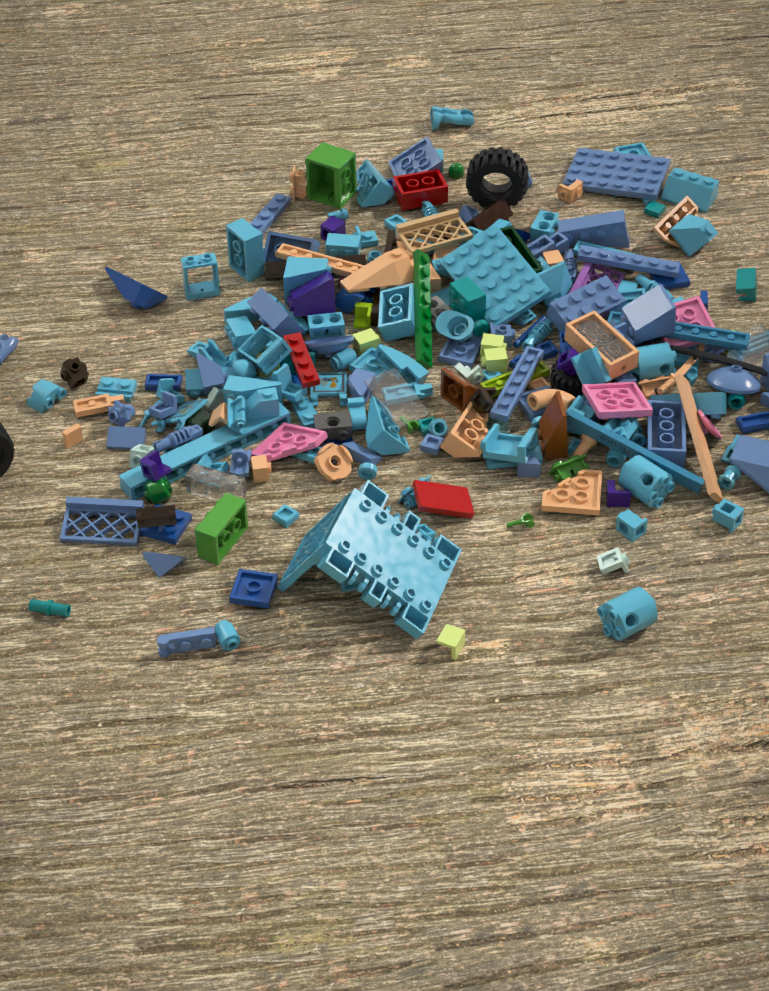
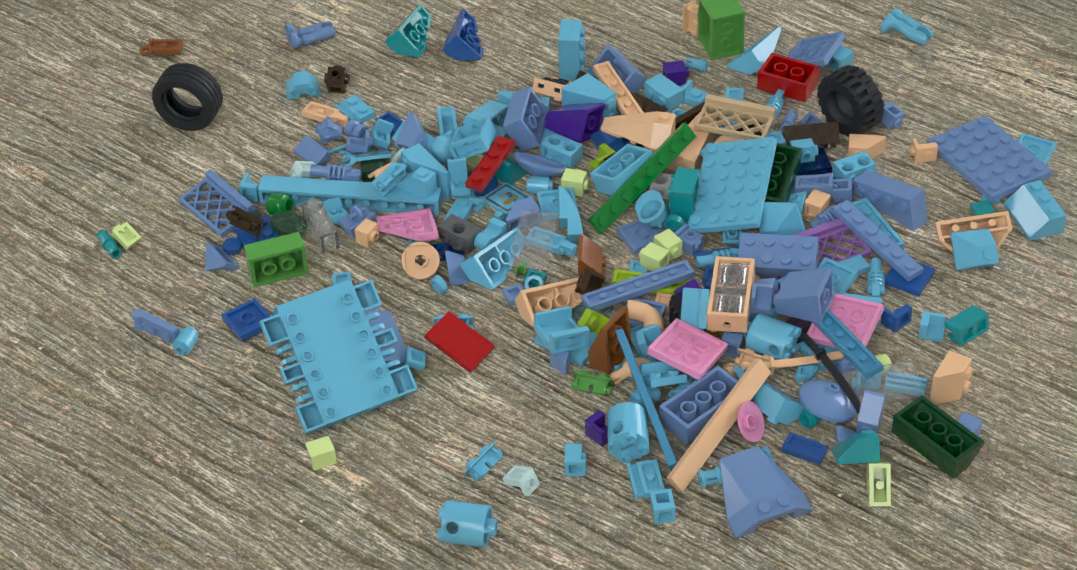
camera: 45 degrees right, 0 degrees up
(56, 591) = (125, 235): none -> yellowish green bracket
(72, 435) = (278, 127): light nougat tile -> none
(84, 310) = (411, 34): none -> teal wedge
(118, 492) = (248, 189): none -> medium azure panel
(143, 401) = (355, 129): none -> medium blue wheel
(153, 467) = (286, 182): dark purple panel -> none
(159, 544) = (232, 245): none -> blue tile
(187, 500) = (288, 223): none -> clear green tile
(201, 289) = (503, 64): medium azure window -> none
(269, 282) = (550, 86): none -> light nougat piece
(271, 212) = (632, 37): medium blue plate -> none
(473, 376) = (616, 256): light aqua bracket -> none
(519, 426) = (593, 320): none -> lime bracket
(525, 519) = (502, 400): bright green hand -> none
(528, 209) = (871, 144): none -> light nougat slope
(570, 569) = (477, 466): none -> medium azure hinge
(575, 494) = (568, 407): light nougat plate -> none
(691, 506) = (645, 478): none -> medium azure plate
(724, 298) = (932, 326): none -> medium azure panel

